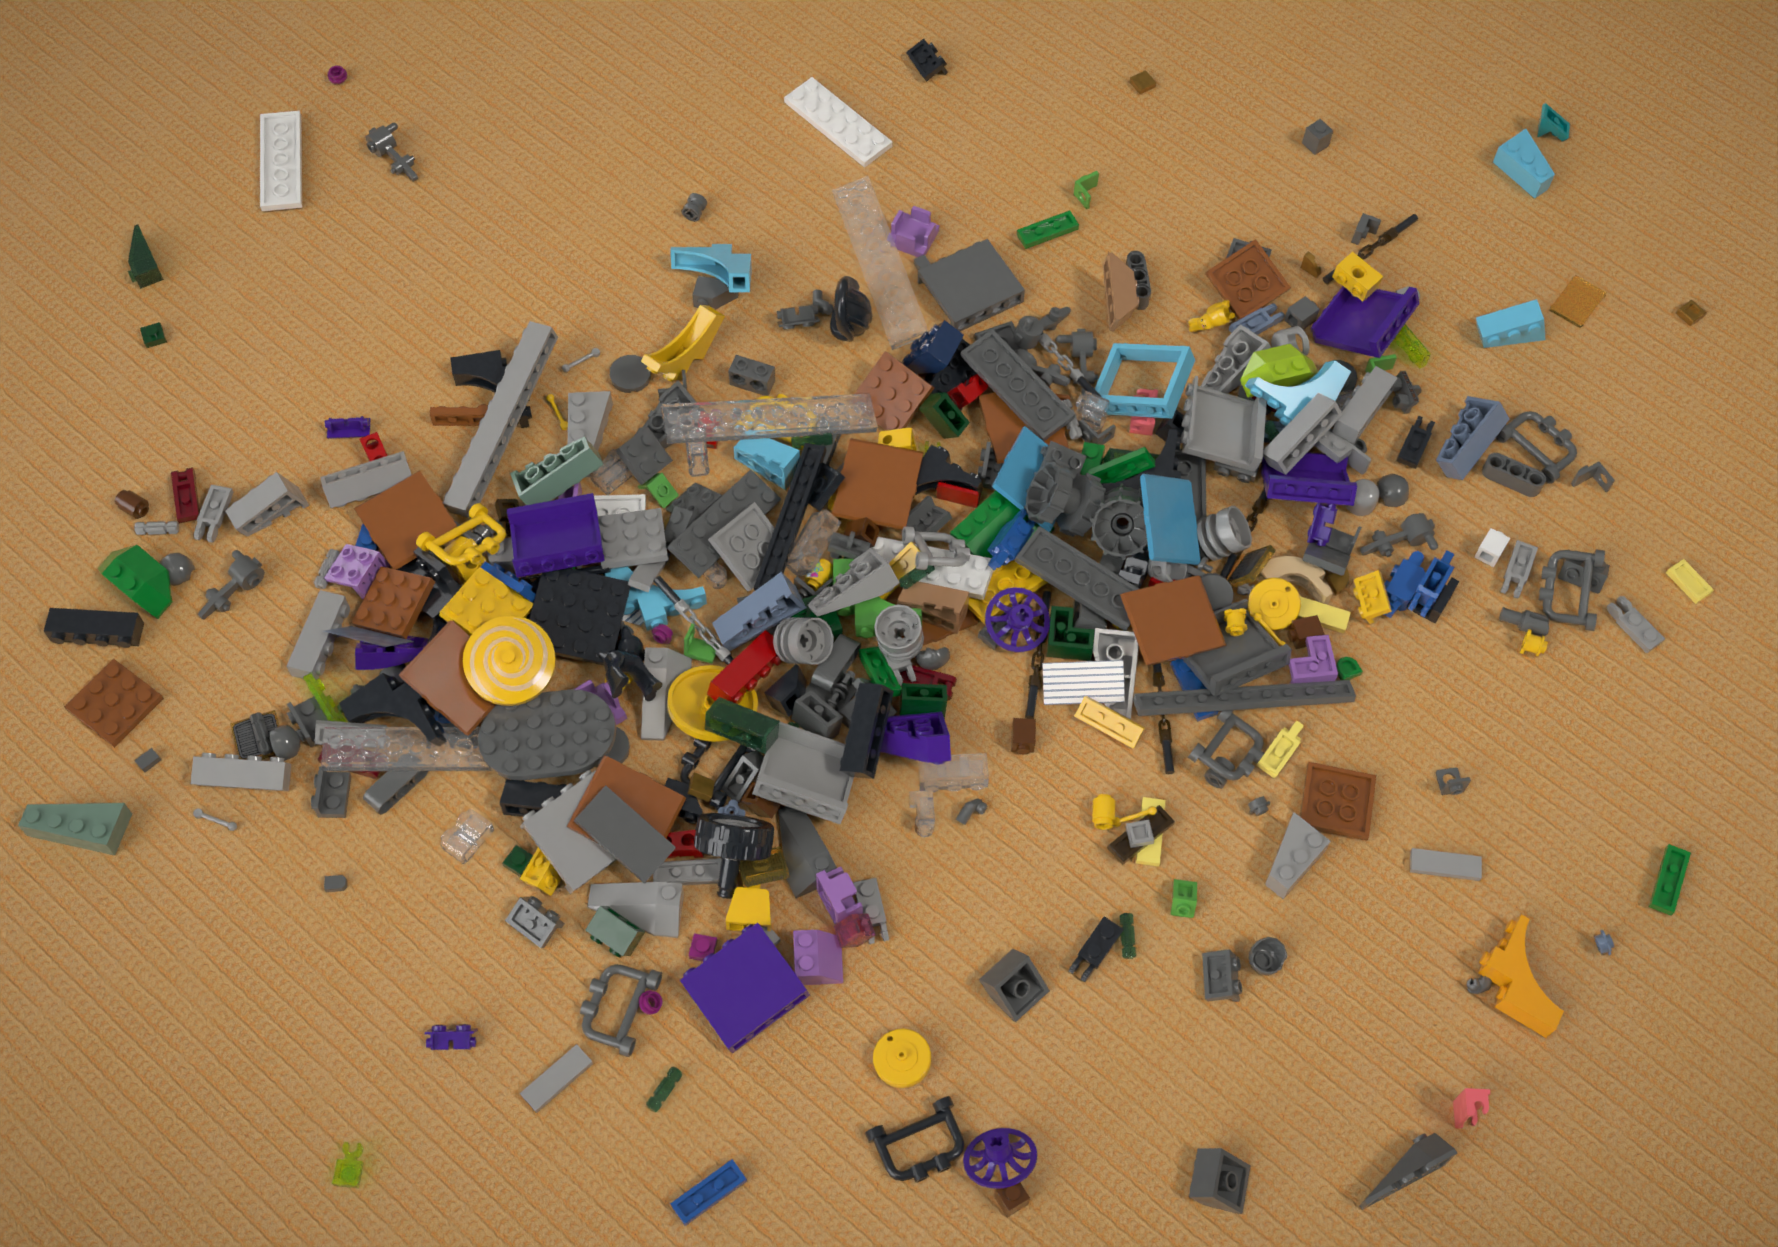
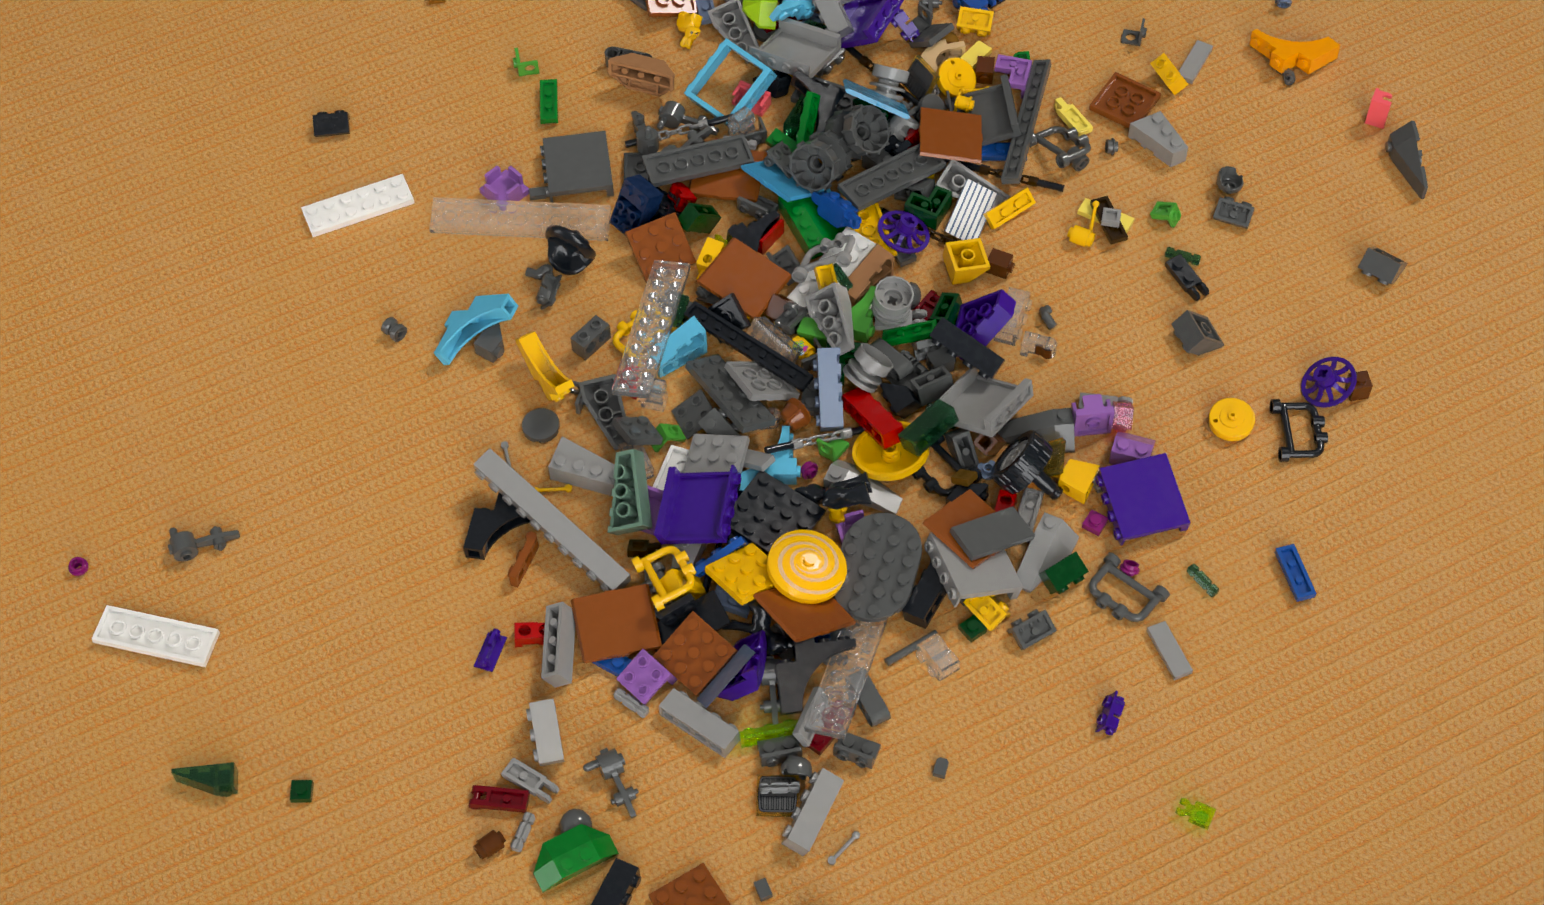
camera: 65 degrees left, 5 degrees down
(468, 803) = (906, 650): none -> dark grey bar
(719, 594) = (795, 414): none -> dark orange piece
(1006, 695) = (965, 260): none -> yellow slope
(1402, 837) = (1169, 74): none -> yellow brick

